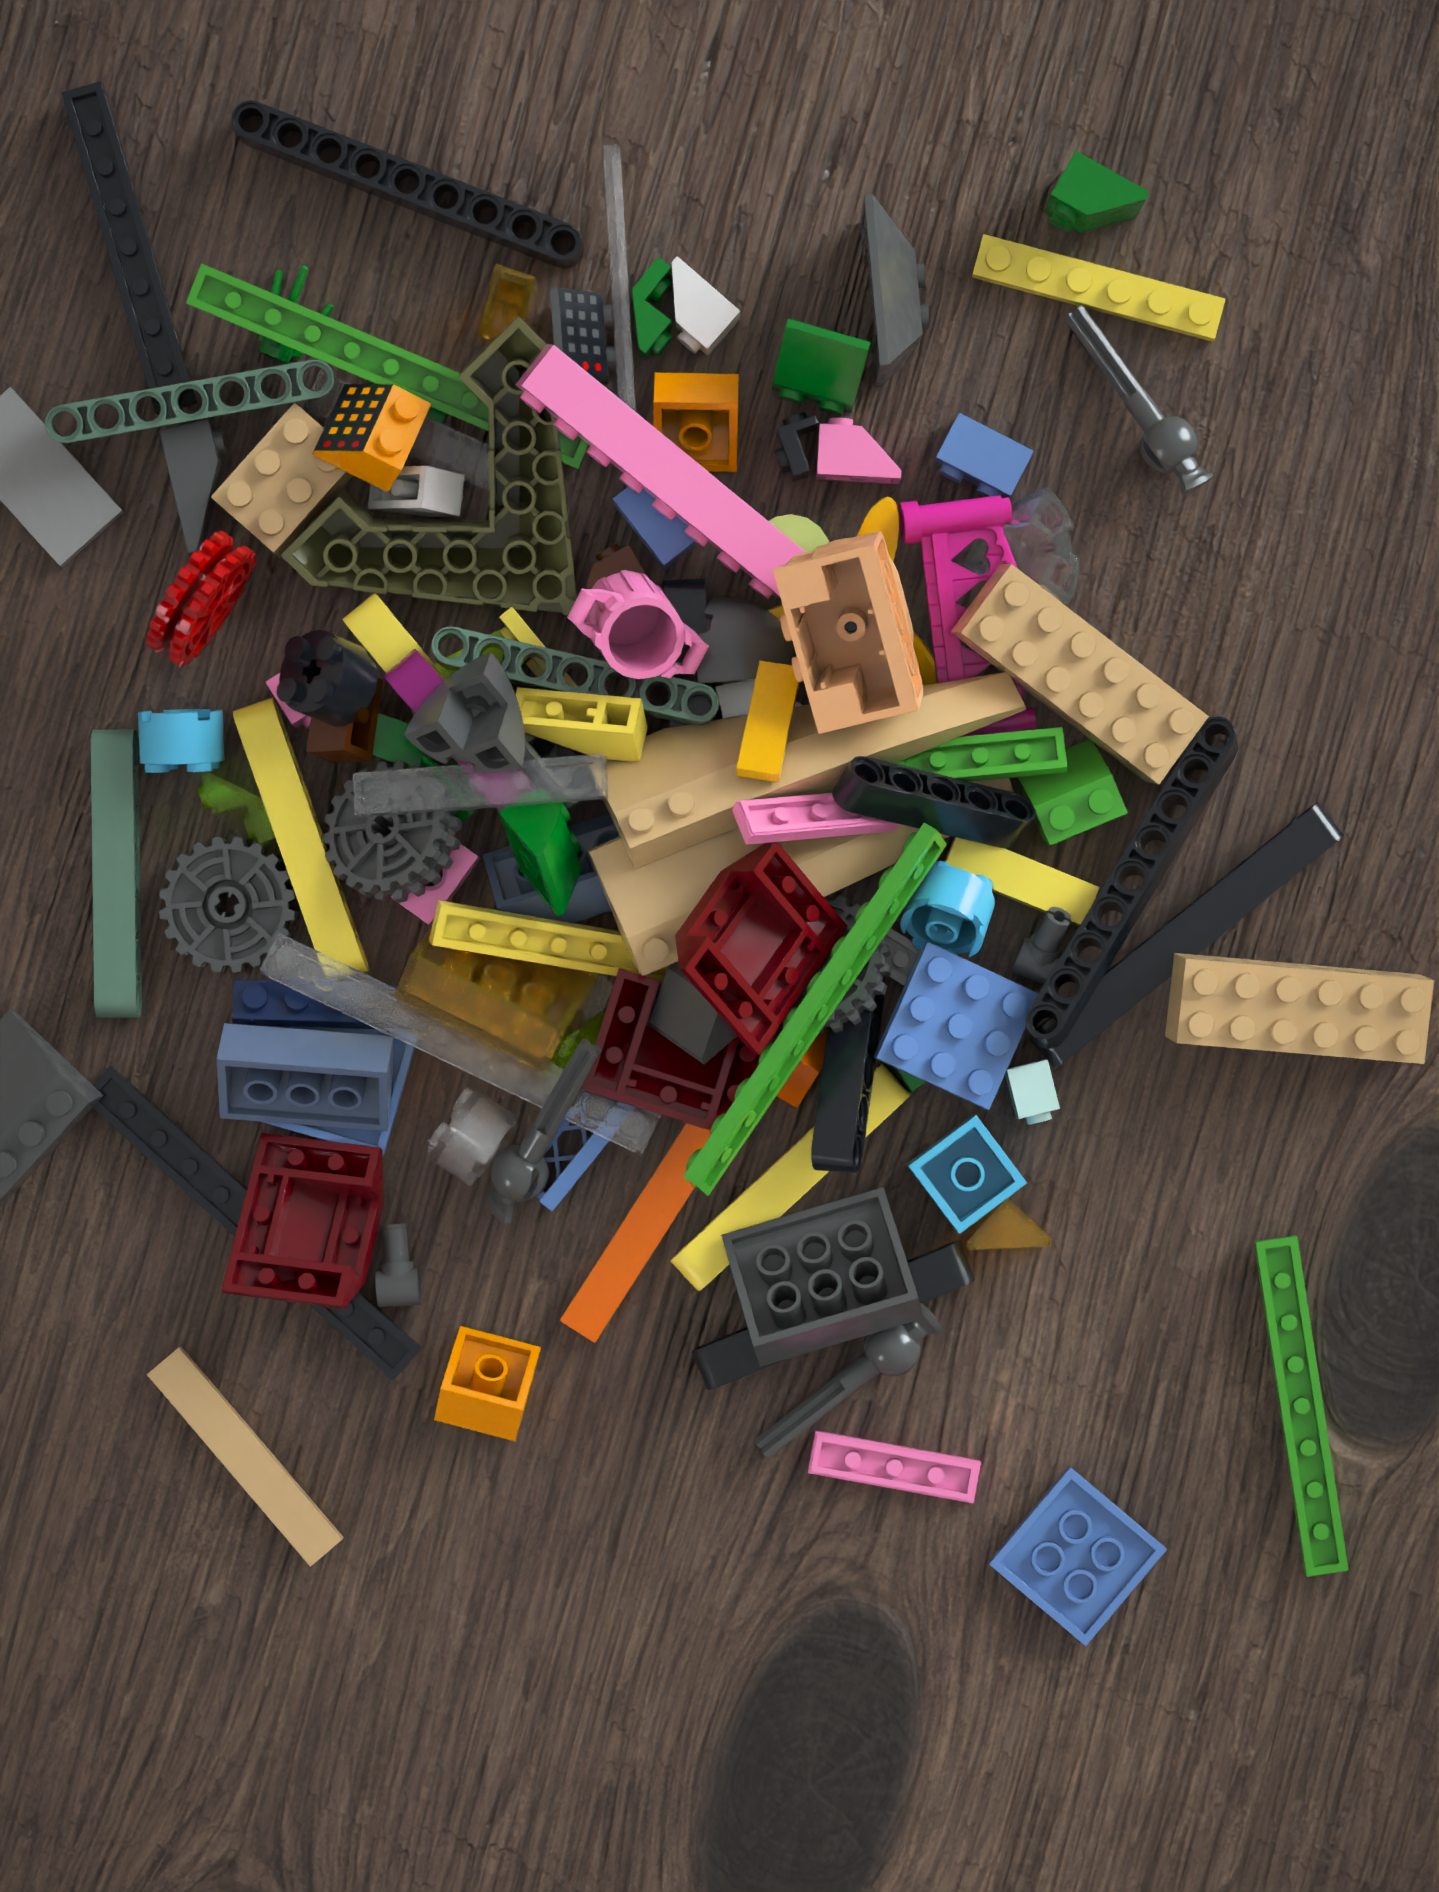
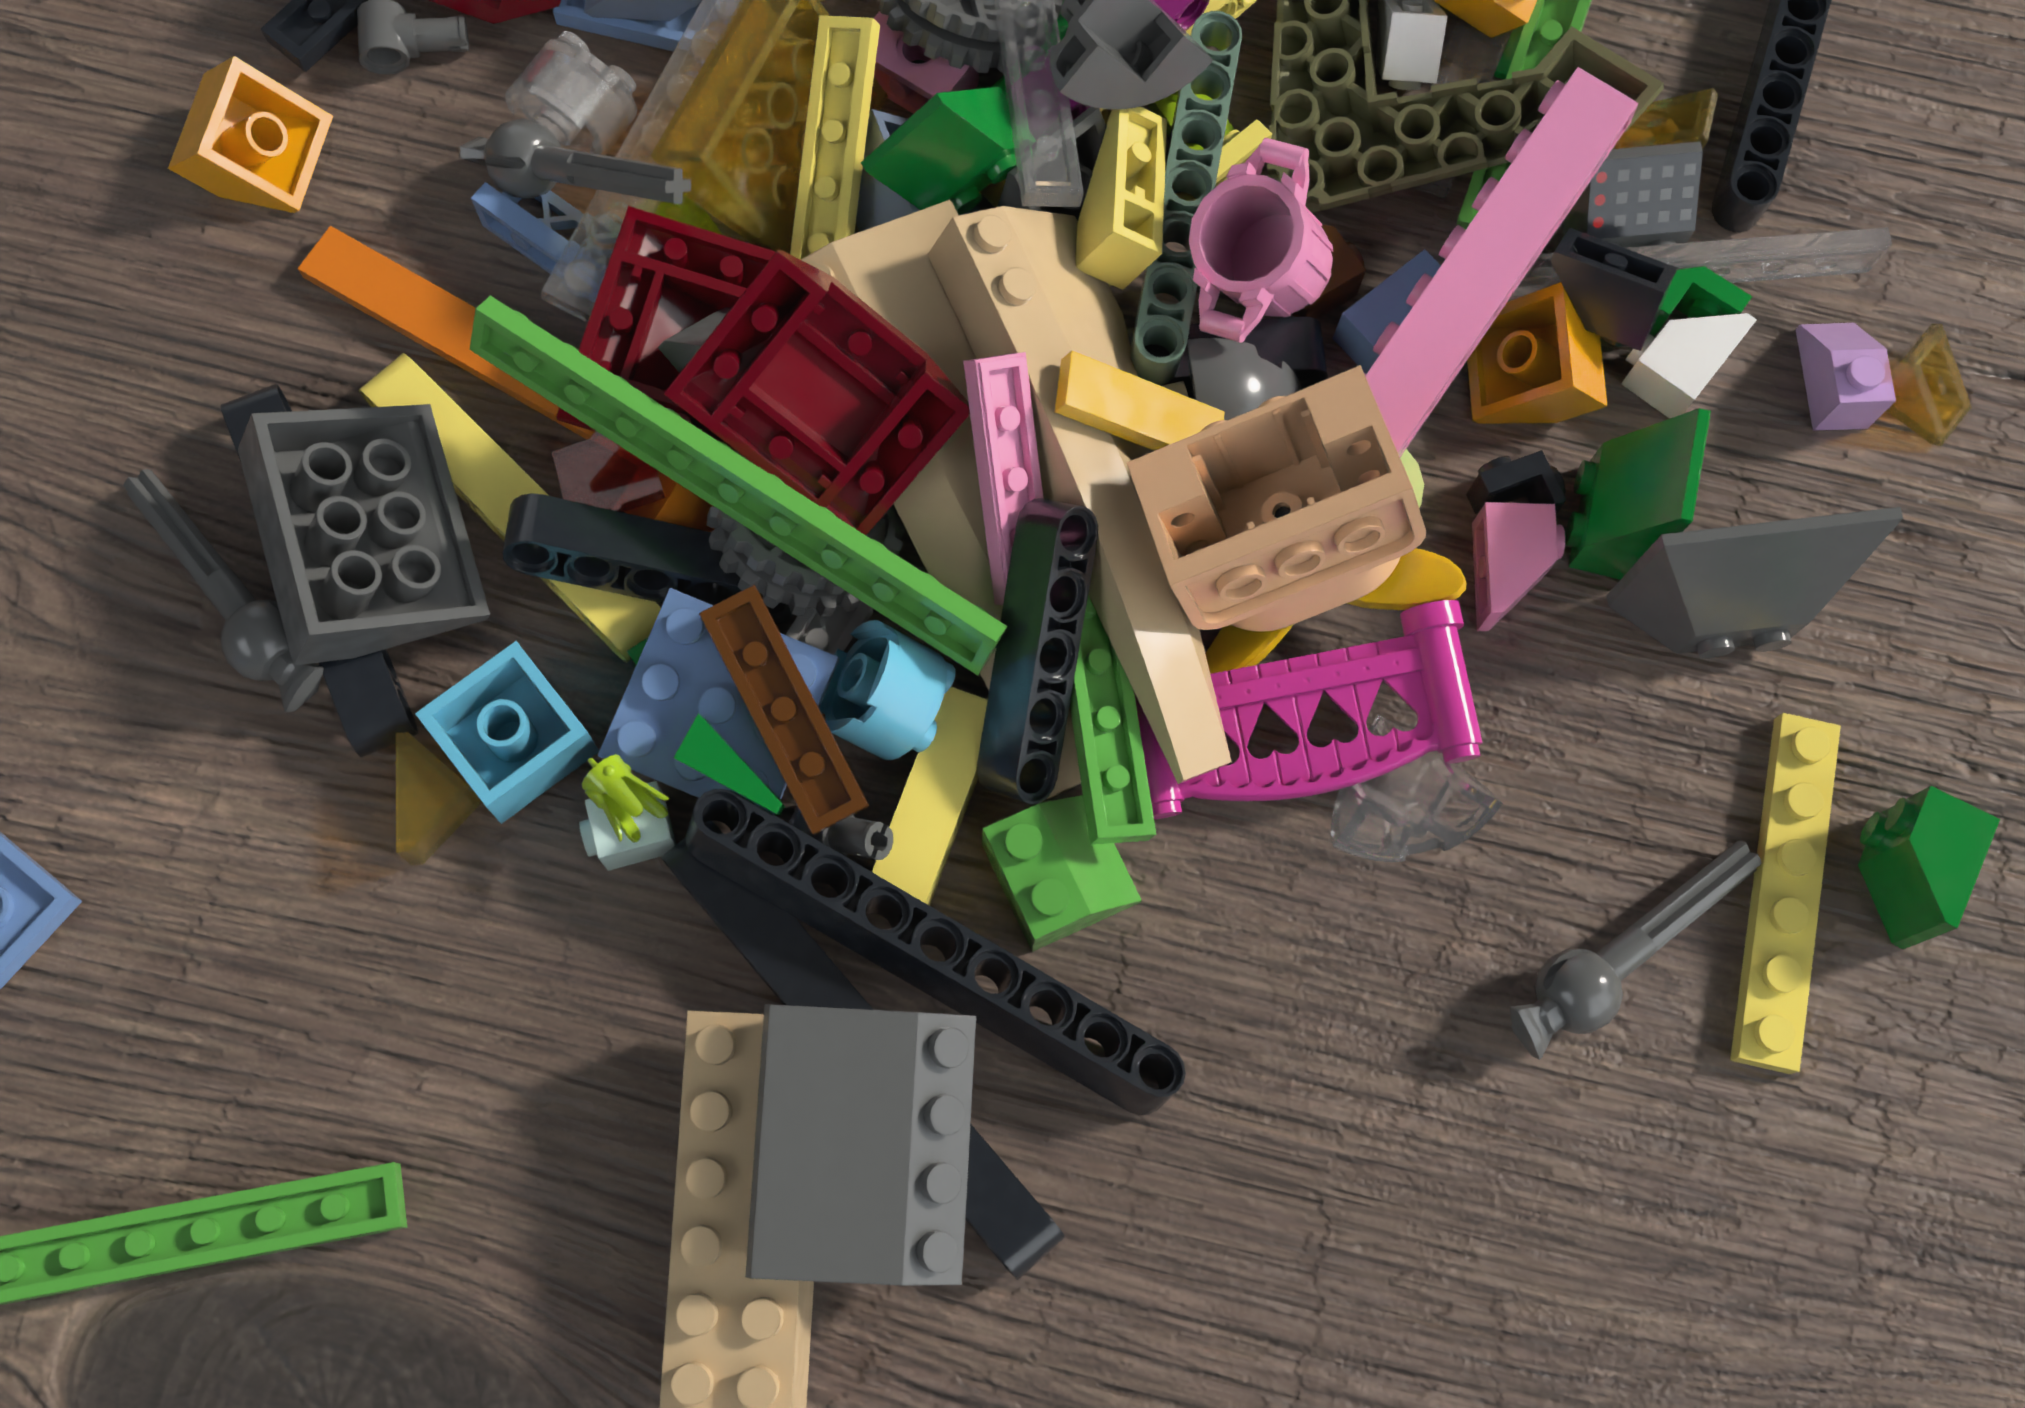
camera: 80 degrees right, 15 degrees down
(656, 365) = (1612, 287): none -> black slope
(708, 192) = (1844, 376): none -> lavender slope
(726, 132) = (1929, 387): none -> clear yellow slope
(788, 1115) = (606, 475): none -> clear red piece
(894, 1466) = (100, 660): bright pink tile -> none
(971, 978) = (784, 710): none -> reddish brown plate
(982, 458) = (1529, 731): medium blue brick -> none
(1003, 1024) = (712, 756): none -> green piece
(1019, 1096) = (621, 795): none -> lime piece
(1079, 673) = (1235, 862): tan brick -> none
(1268, 928) = (861, 1146): none -> dark grey slope

